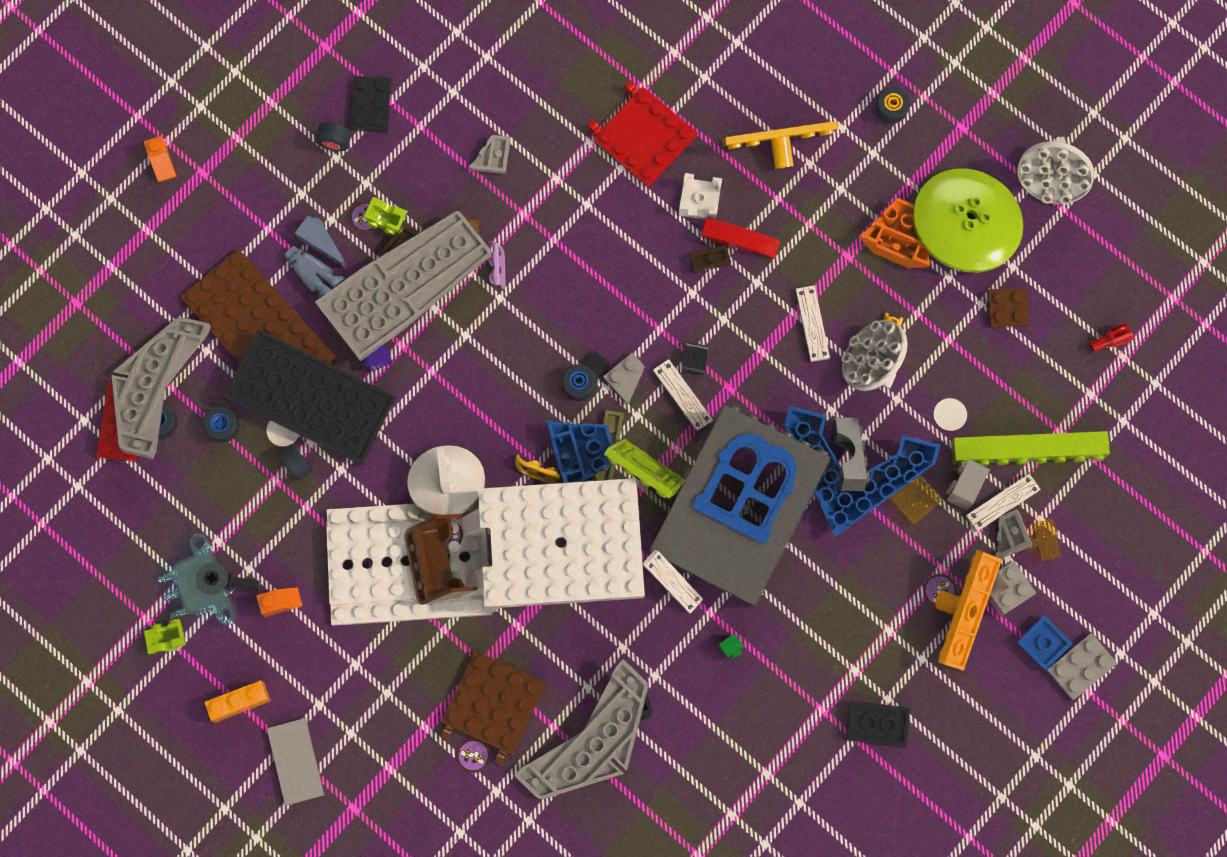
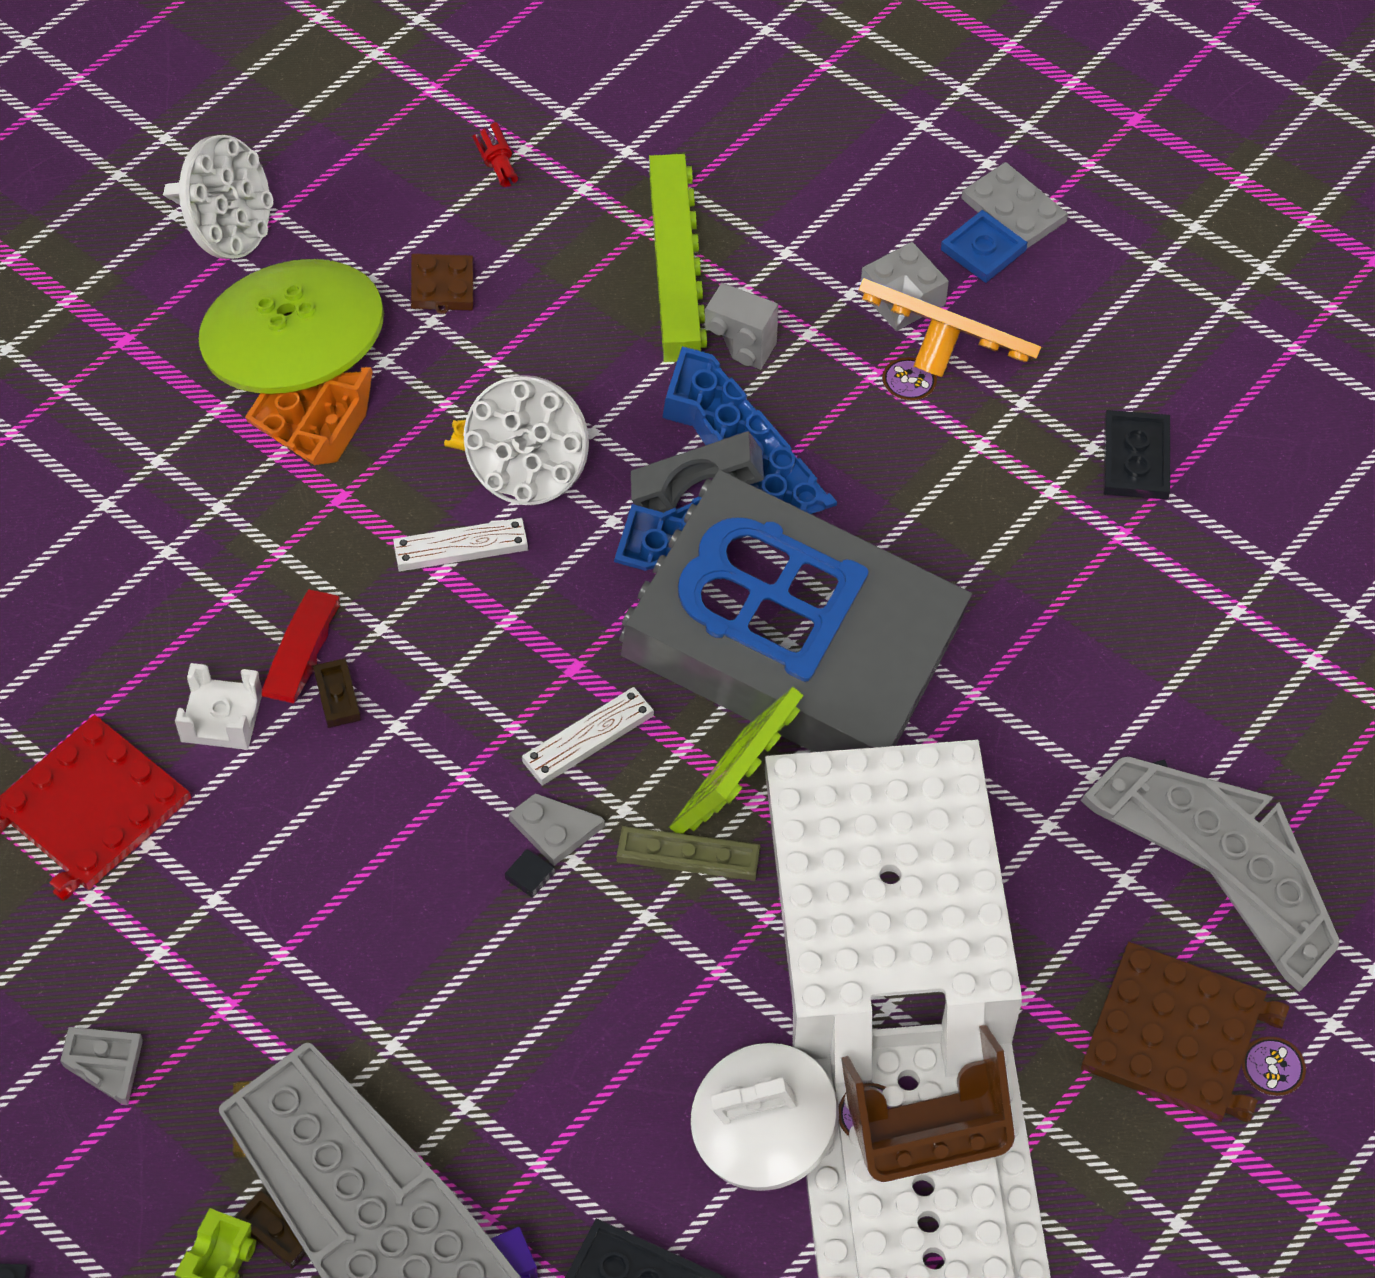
camera: 90 degrees left, 20 degrees down
(497, 261) = (352, 1045): lavender piece -> none
(533, 468) = (727, 972): yellow piece -> none
(579, 389) = (566, 911): black wheel -> none
(579, 449) = (701, 890): blue wedge -> none
(672, 581) = (935, 726): white tile -> none
(695, 358) = (520, 716): black piece -> none
(731, 647) = (1033, 655): green plate -> none
(780, 140) = (123, 581): yellow plate -> none
(889, 111) = (75, 426): black wheel -> none
(916, 500) = (772, 397): clear yellow plate -> none
(950, 414) = (618, 362): white sticker -> none
(1003, 502) = (749, 277): white tile -> none
(1012, 535) = (816, 280): light grey wing -> none
(1046, 540) = (822, 239): clear yellow plate -> none

